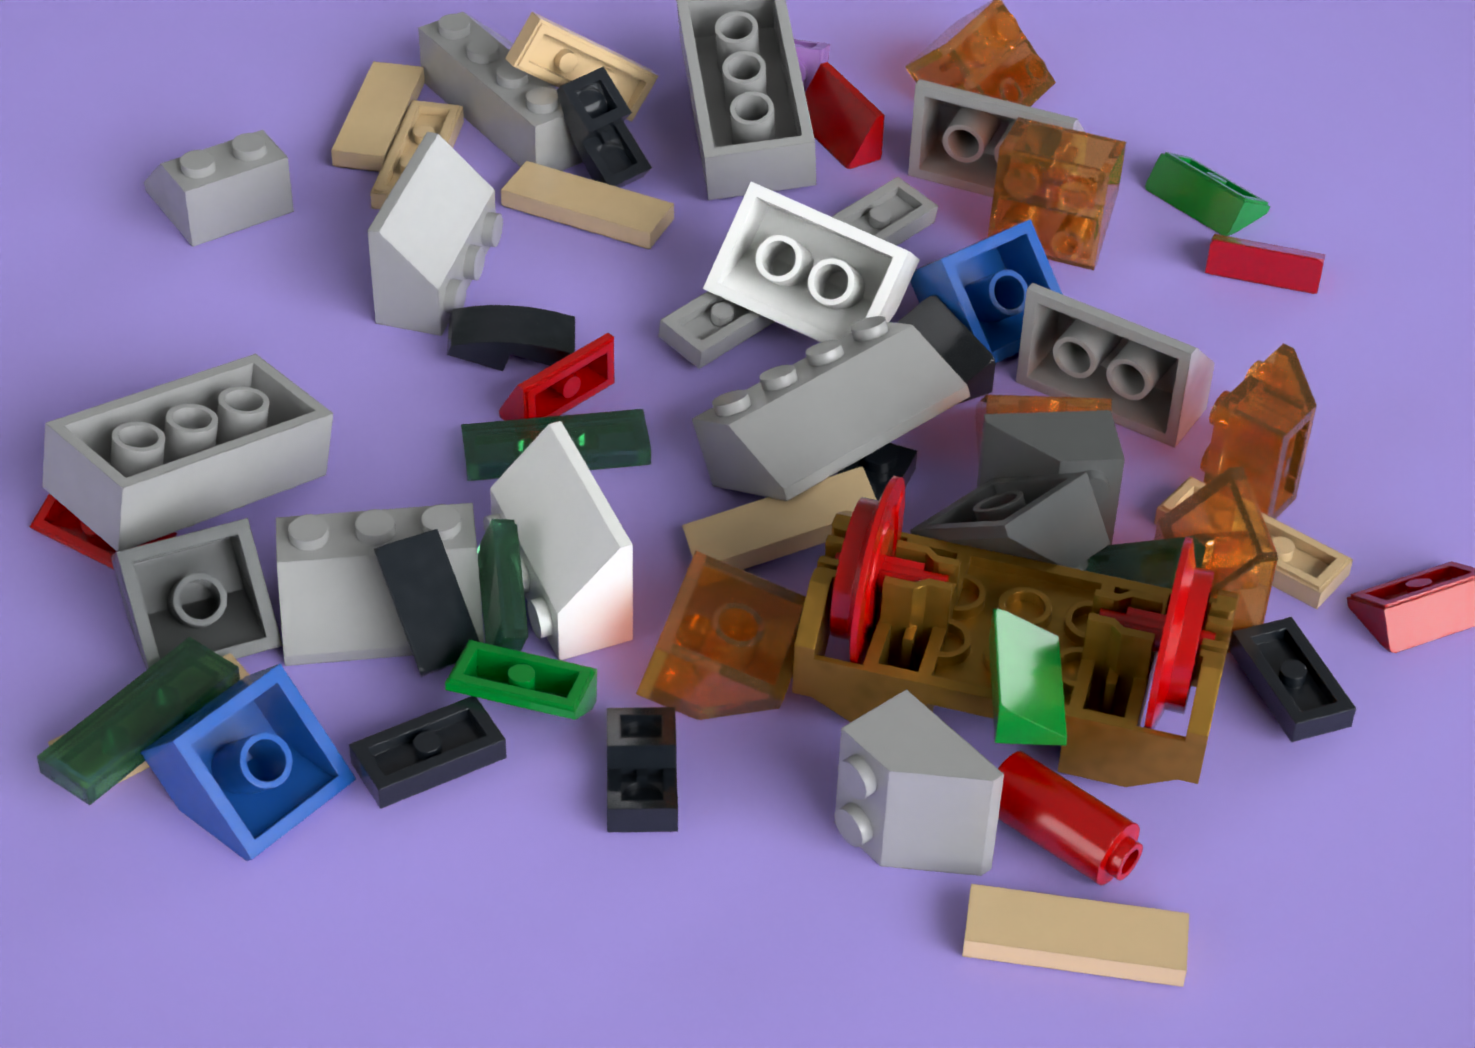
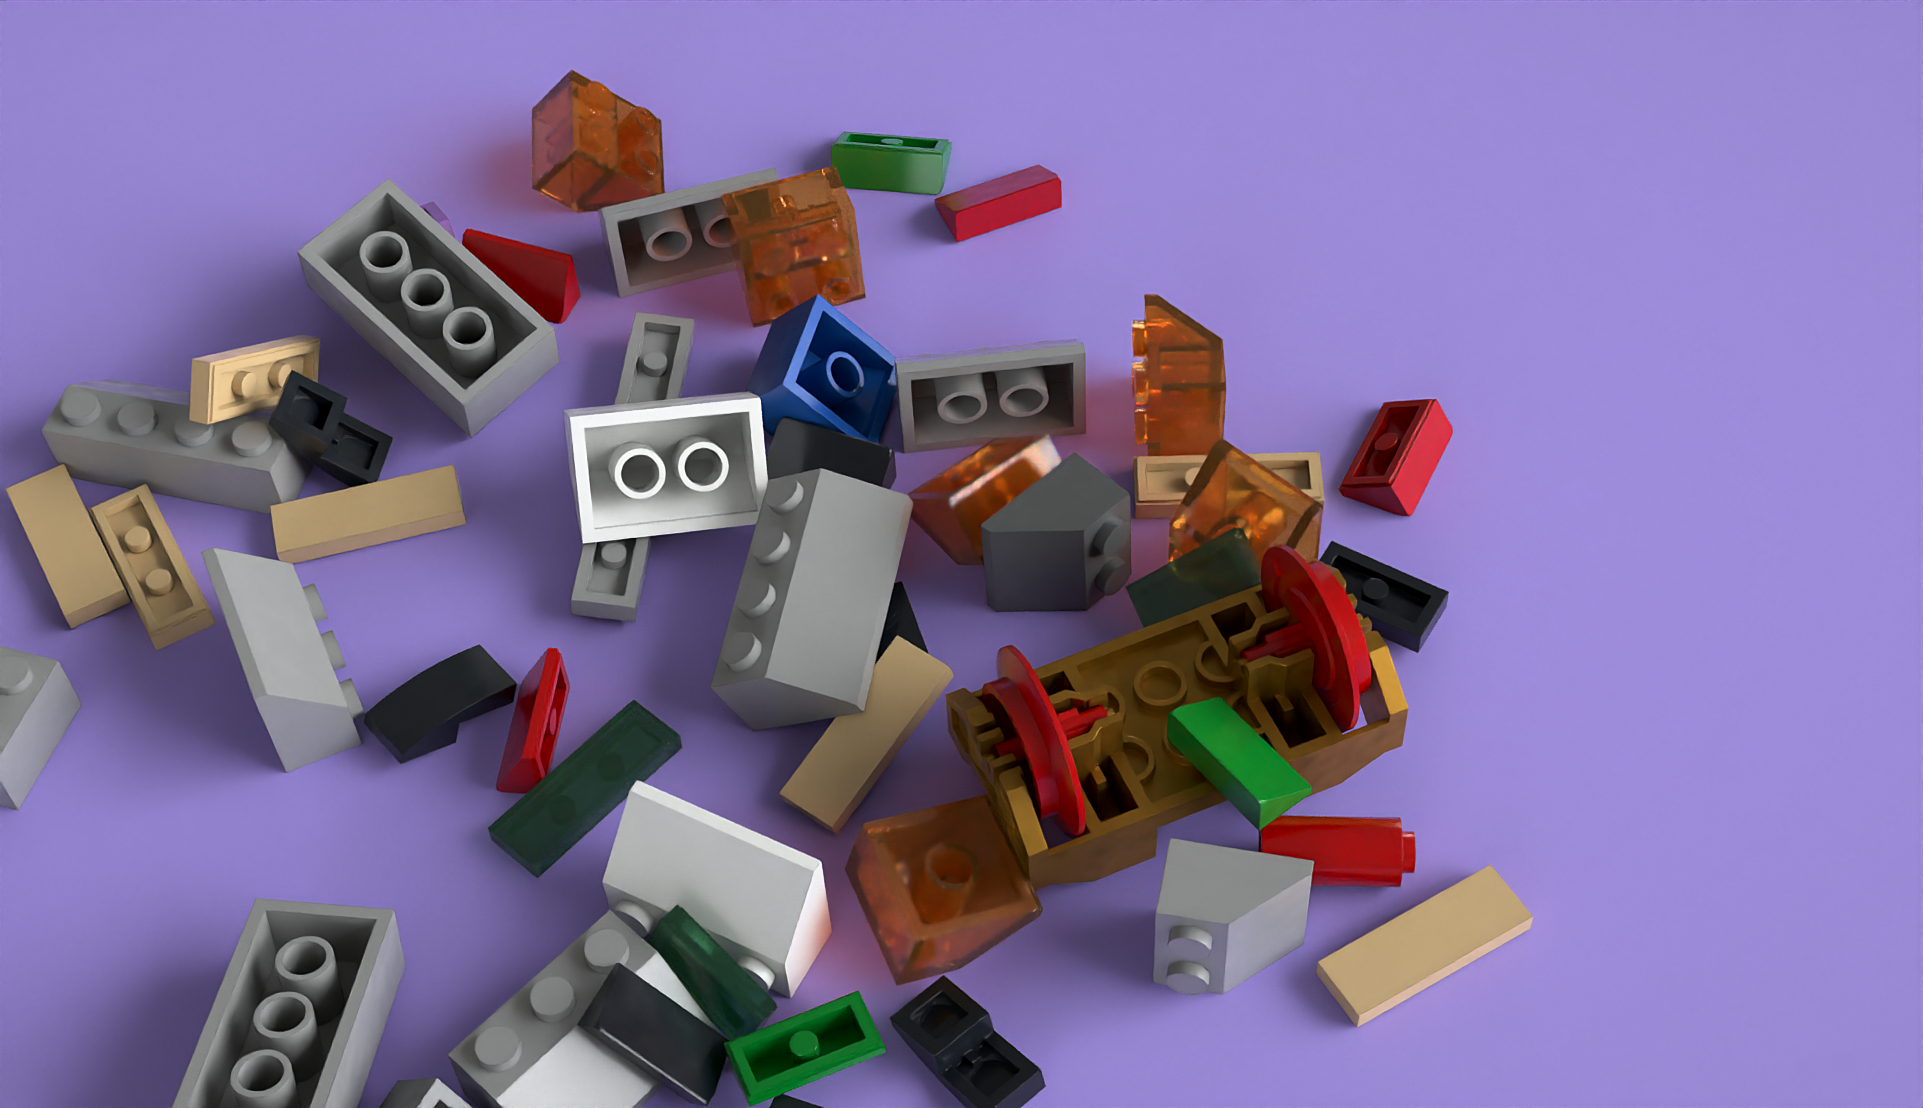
camera: 35 degrees left, 10 degrees up
(1026, 517) = (1079, 599): dark grey slope -> none

